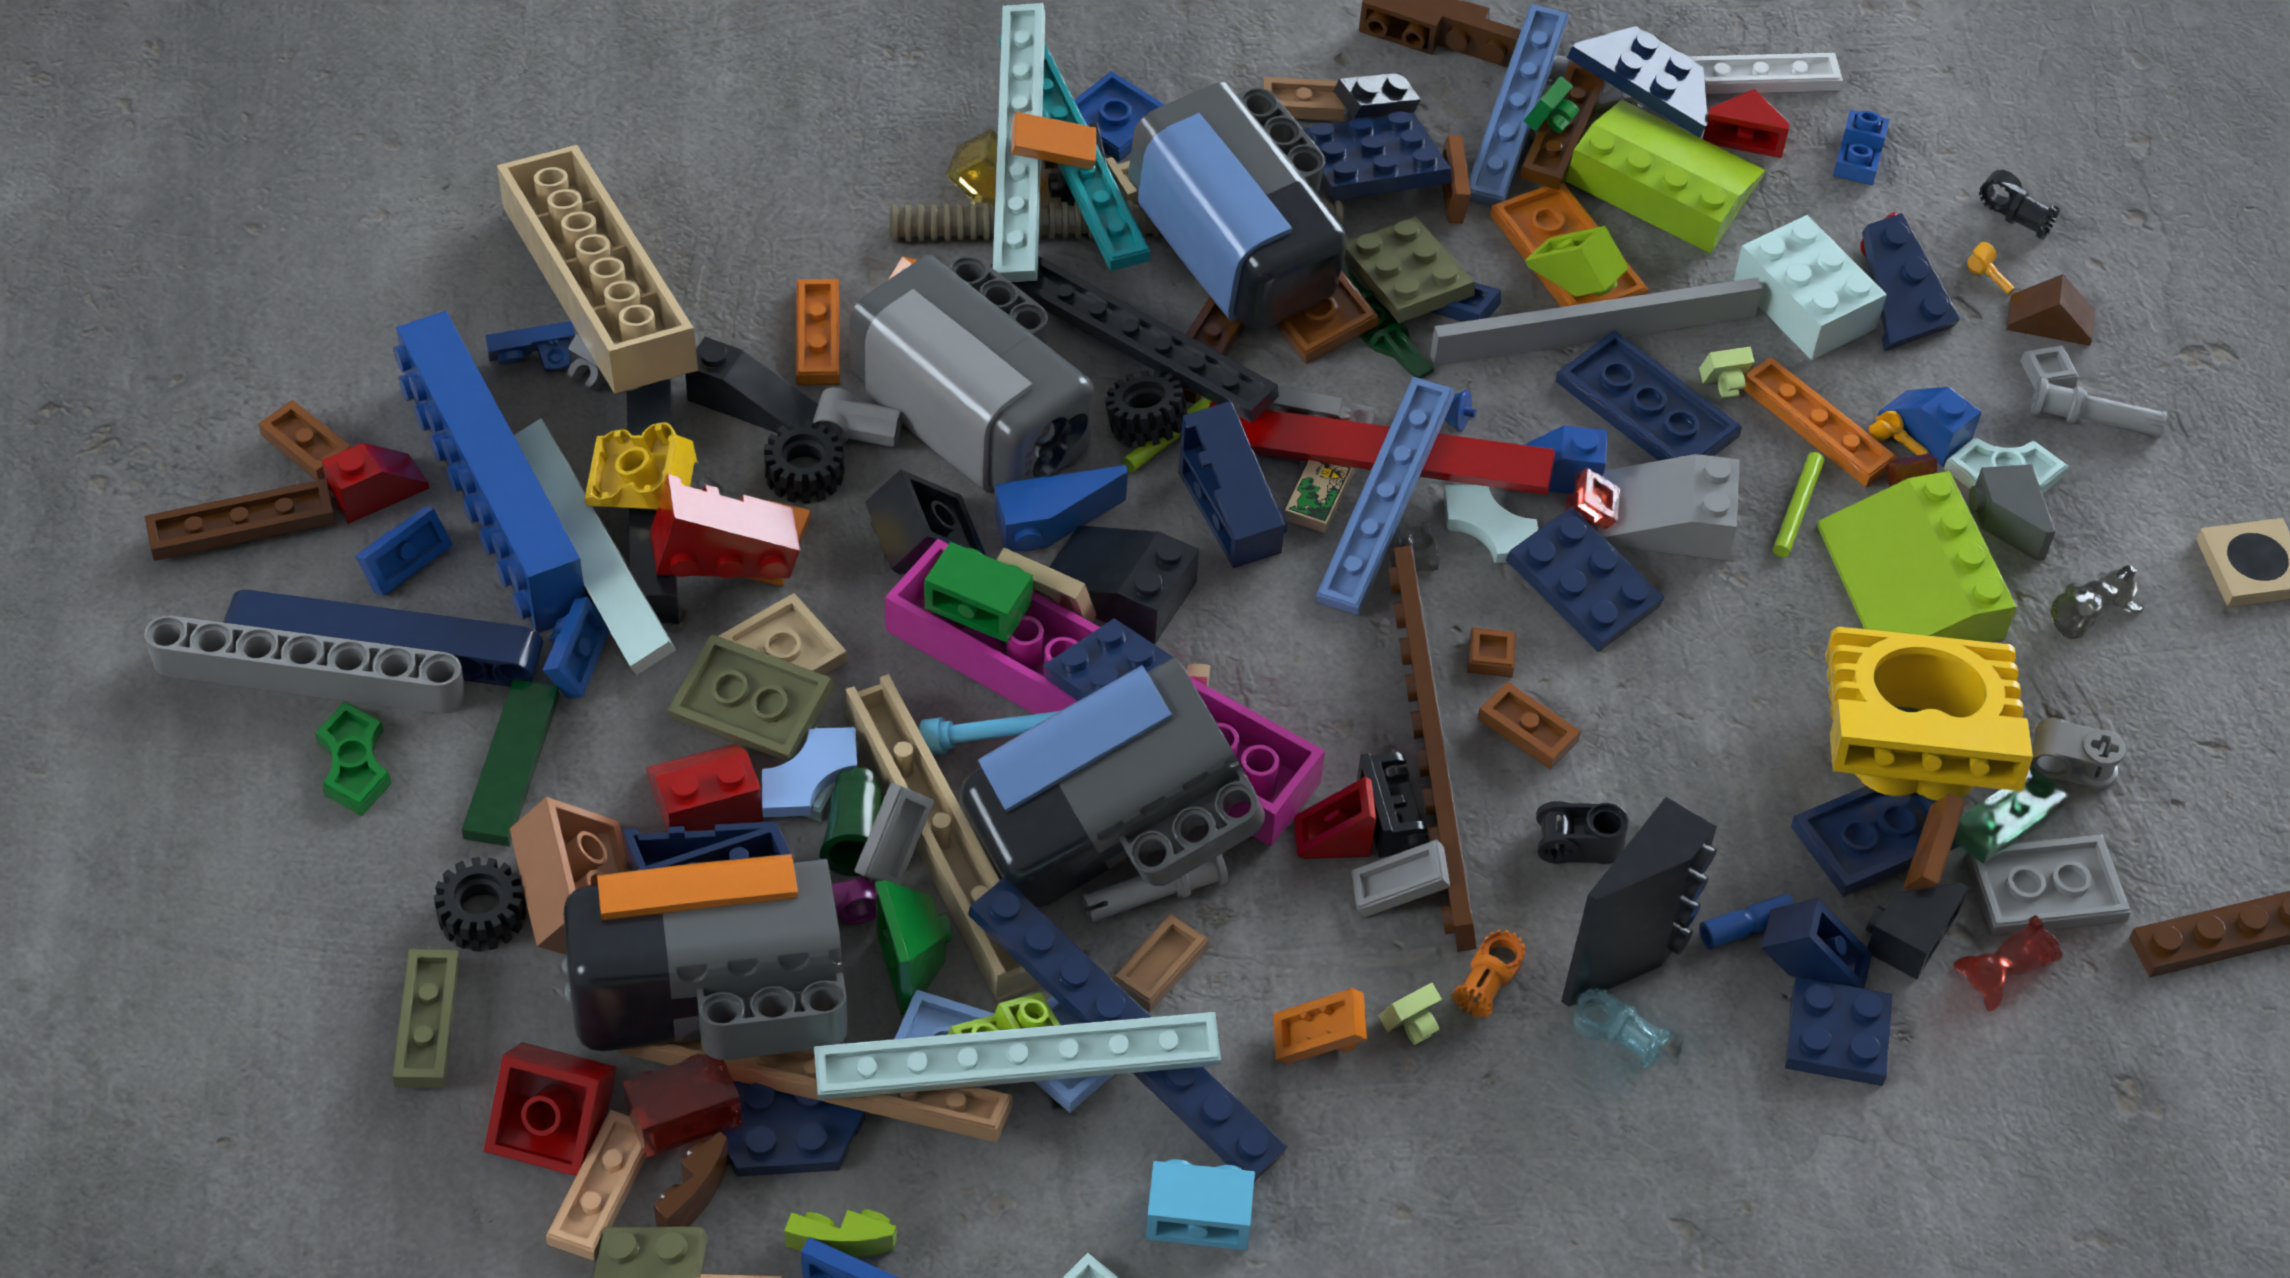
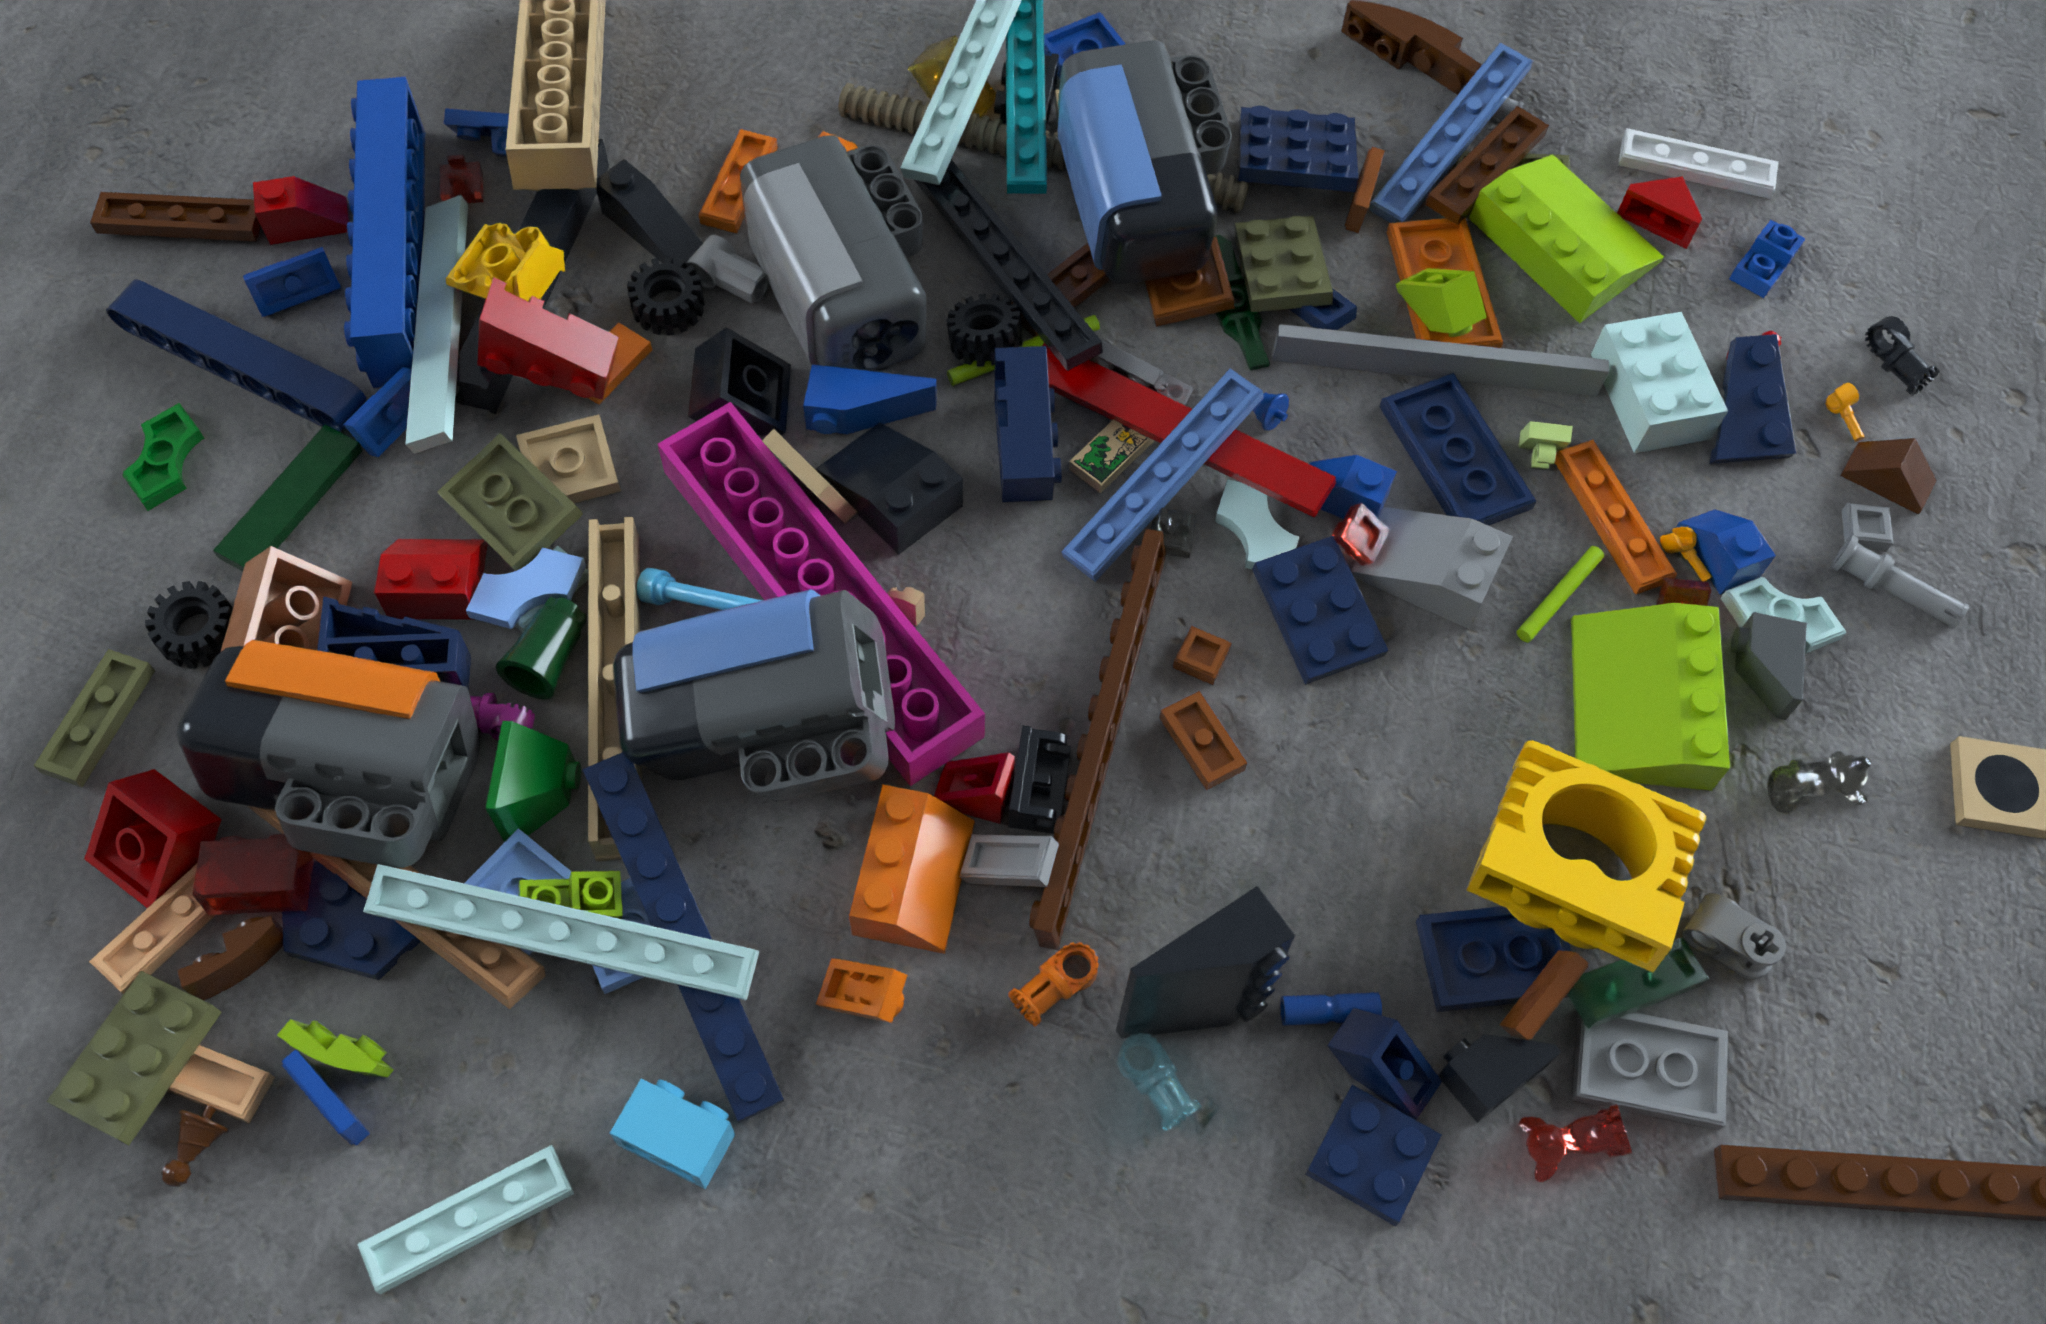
camera: 20 degrees right, 10 degrees up
(301, 438) = (262, 154): dark orange plate -> none
(305, 664) = (162, 361): light grey beam -> none
(525, 405) = (461, 179): none -> clear red tile
(894, 834) = (558, 675): light grey tile -> none
(978, 591) = (733, 463): green brick -> none
(1053, 140) = (1000, 59): orange tile -> none
(1102, 659) = (817, 563): dark blue plate -> none
(1138, 892) = (736, 795): light grey pin -> none
(1160, 962) = (756, 870): medium nougat tile -> none
(1307, 97) = (1259, 80): medium nougat plate -> none
(1309, 917) = (911, 871): none -> orange slope
(1376, 95) = (1326, 93): black plate -> none
(1414, 1014) = (962, 999): yellowish green tile -> none
(1553, 108) = (1477, 145): green tile -> none
(1581, 832) = (1200, 864): black piece -> none
(1649, 73) = (1586, 136): wing -> none

